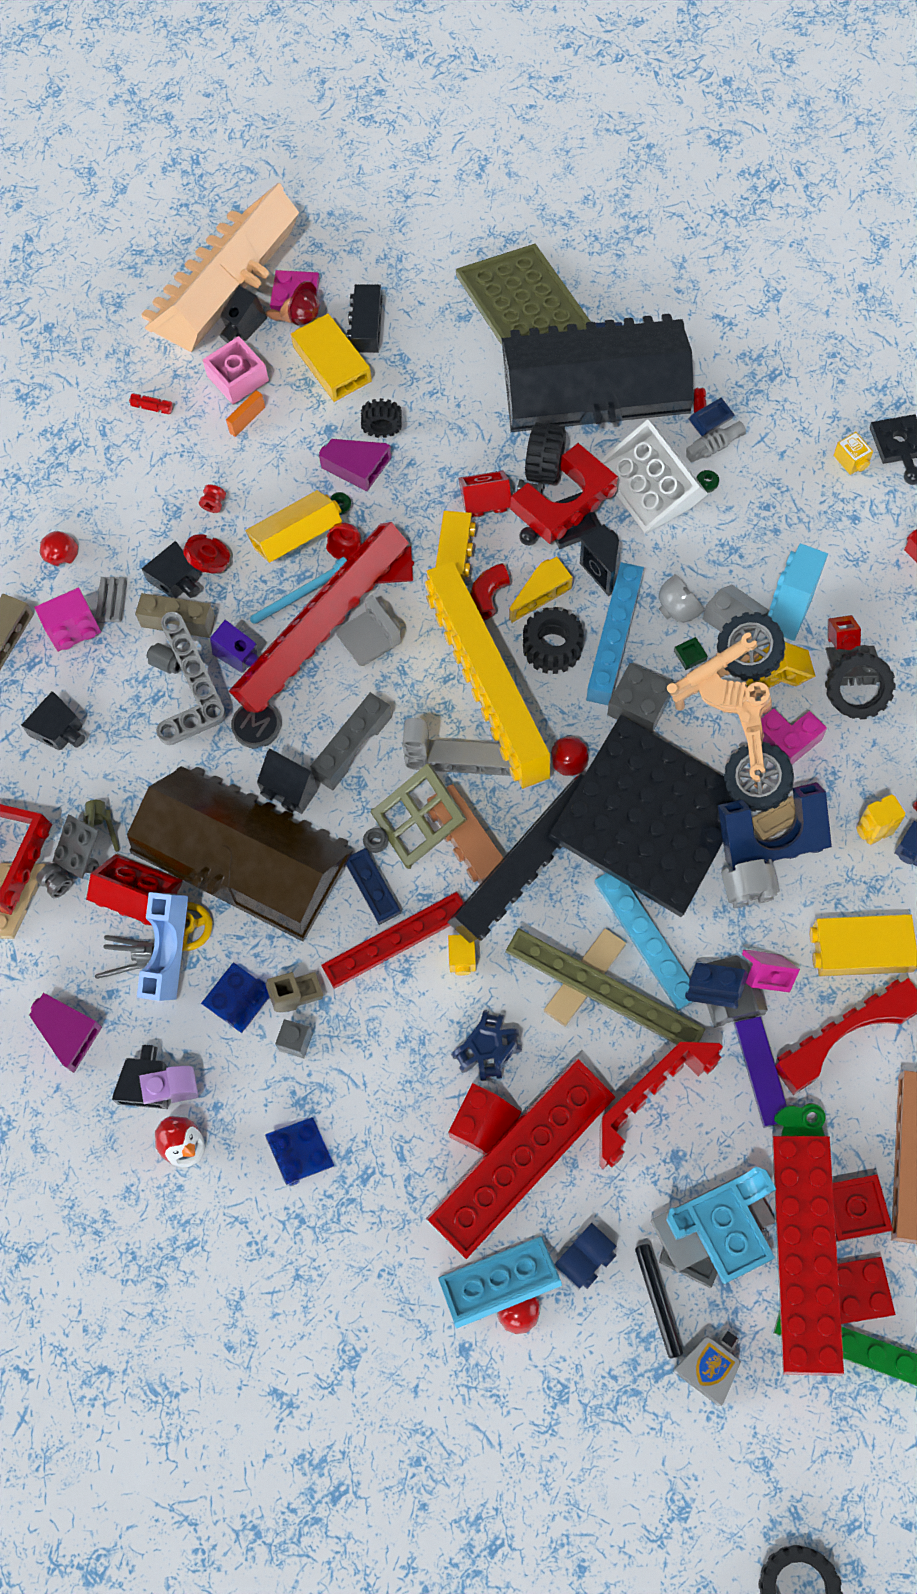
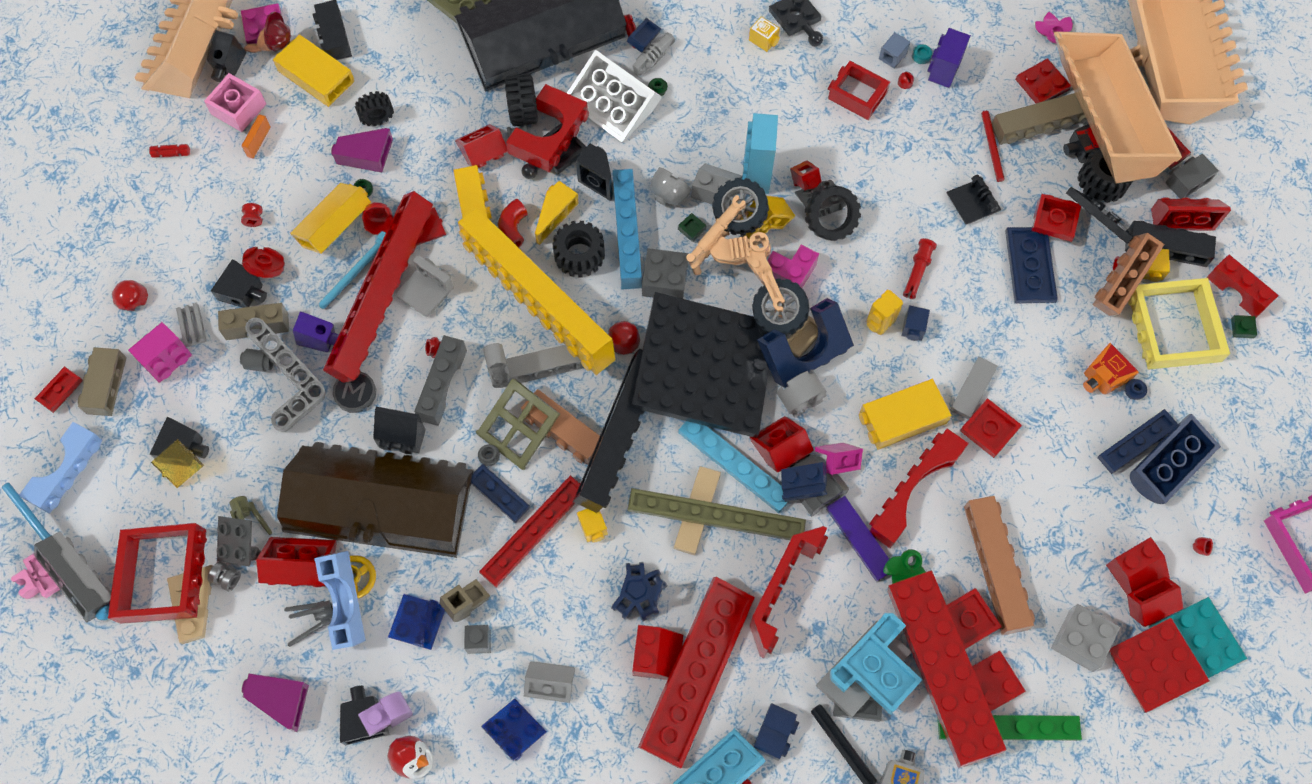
camera: 25 degrees left, 0 degrees up
(46, 744) = (177, 463): none -> clear yellow piece
(354, 700) = (432, 346): none -> red plate
(355, 1112) = (549, 682): none -> light grey panel
(708, 933) = (782, 443): none -> red slope

